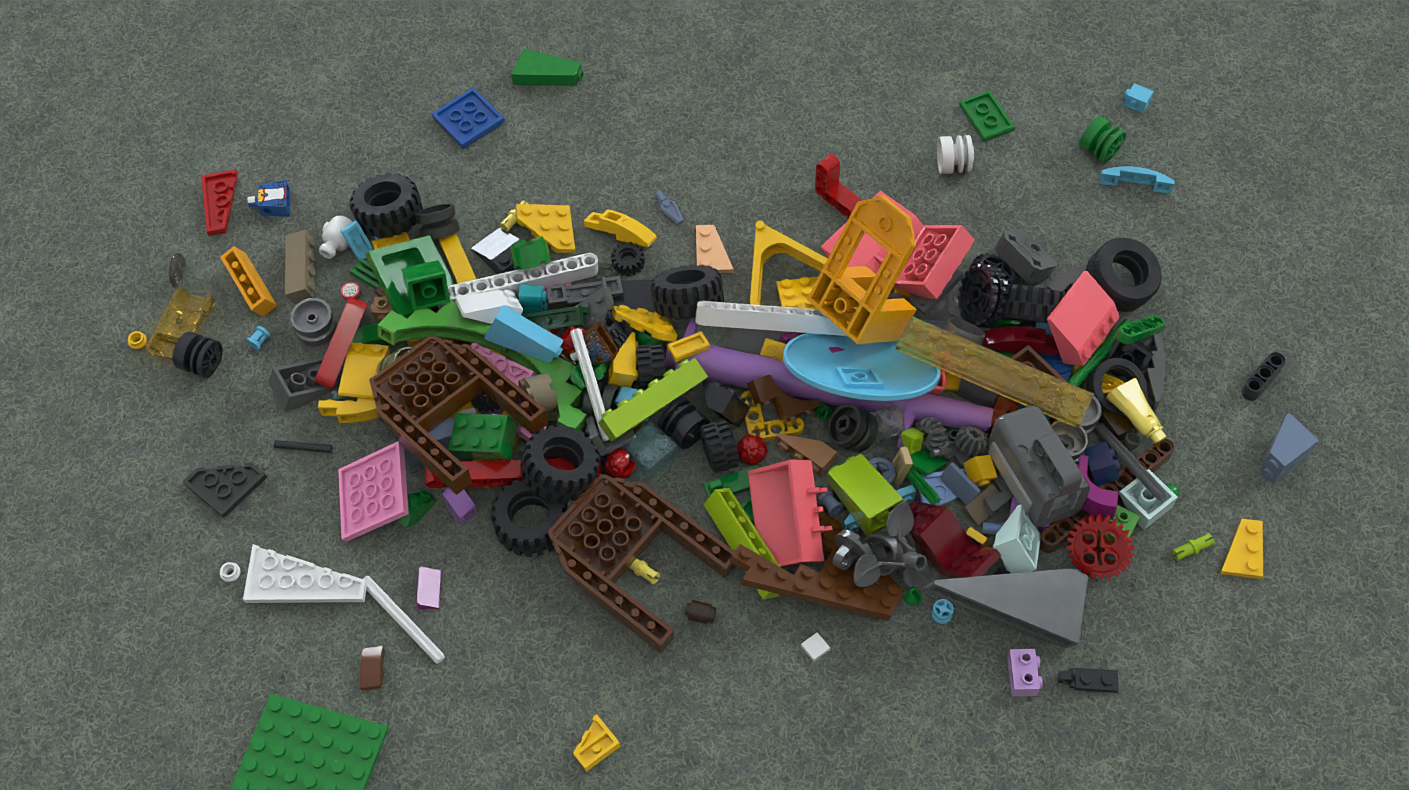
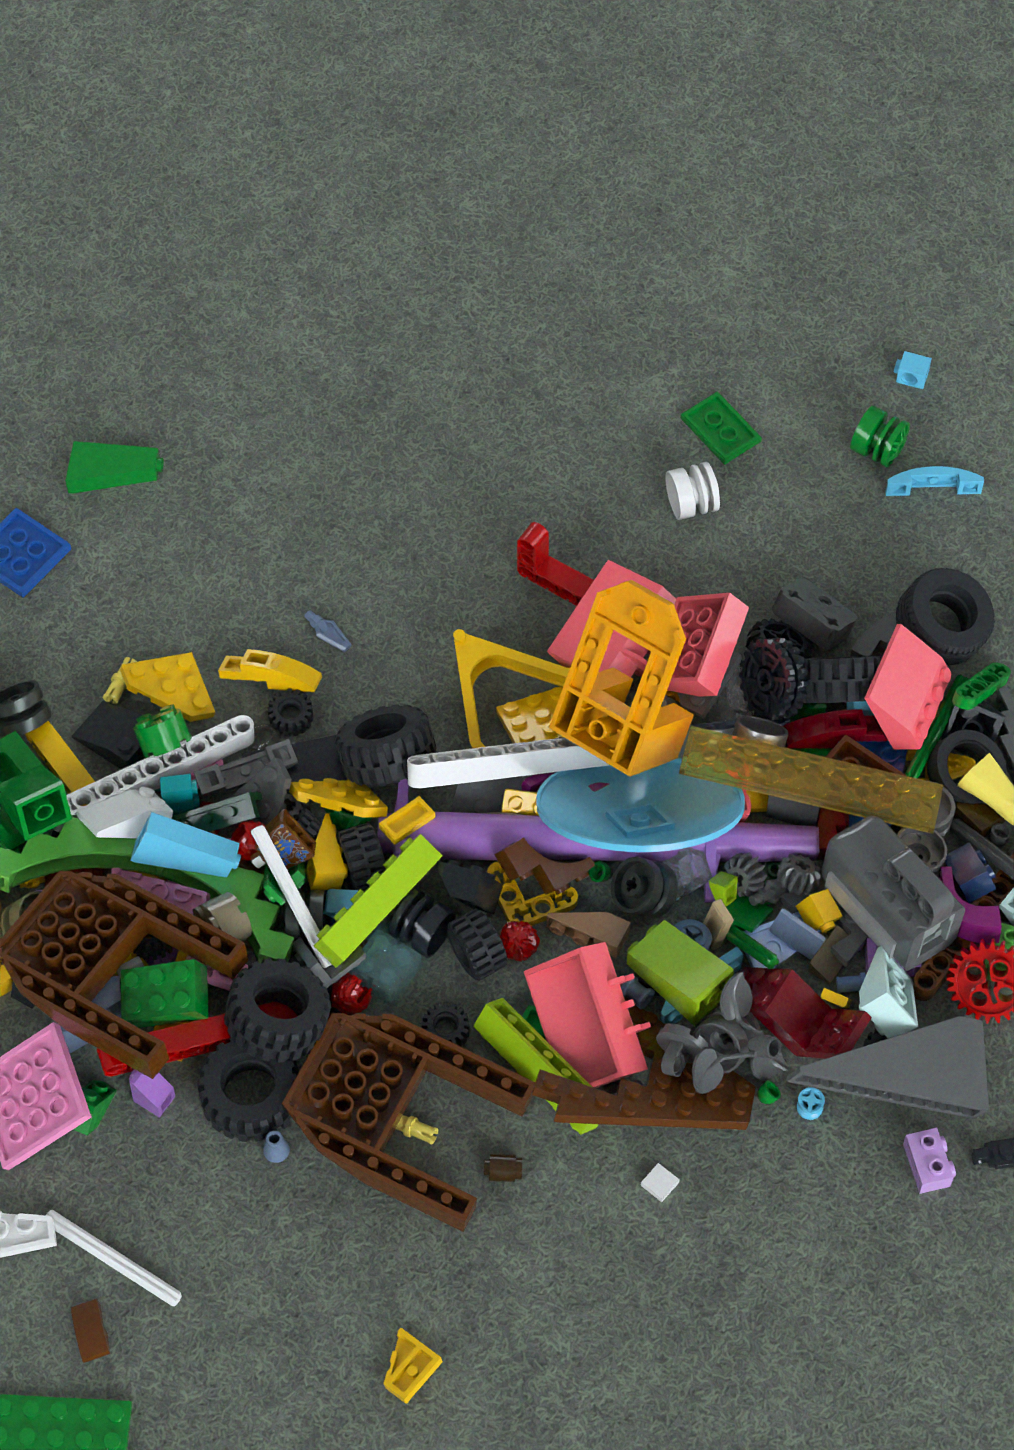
camera: 15 degrees left, 0 degrees up
(428, 588) = (137, 1210): slope -> none
(538, 563) = (276, 1147): none -> sand blue cone
(689, 492) = (450, 1013): none -> black tyre
(711, 250) = (398, 680): light nougat wing -> none
(737, 482) = (510, 987): green hinge -> none

